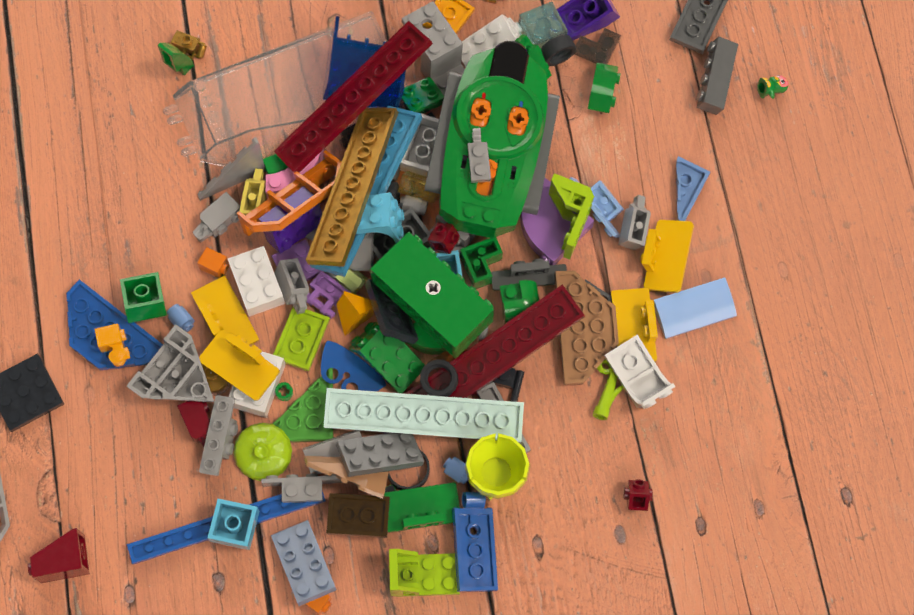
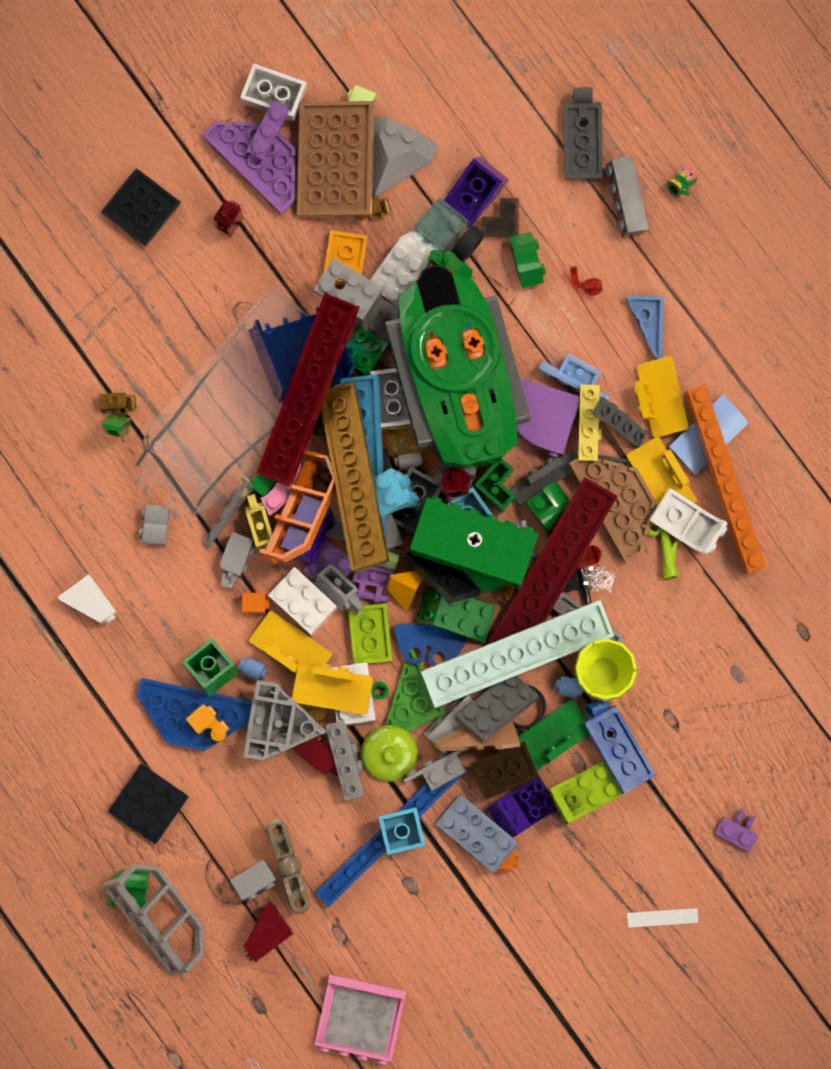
camera: 25 degrees left, 10 degrees up
(72, 192) = (89, 600): none -> white slope
(76, 504) = (253, 881): none -> light grey brick
(115, 507) = (288, 866): none -> dark tan piece
(164, 158) = (155, 525): none -> light grey brick
(358, 560) = (523, 807): none -> dark purple slope
(435, 364) = (500, 614): black tyre -> none
(478, 158) = (457, 399): light grey plate -> none
(532, 385) = (599, 579): none -> clear brick
(533, 364) = (591, 557): none -> clear red plate
(570, 197) = (548, 390): lime bracket -> none
(591, 245) = (588, 423): none -> light yellow bracket
(618, 255) = (619, 422): none -> dark grey bracket
(635, 224) = (619, 381): light grey hinge -> none
(638, 495) = (737, 633): dark red brick -> none
(648, 135) = (591, 286): none -> clear red plate
(691, 352) = (724, 479): none -> orange brick

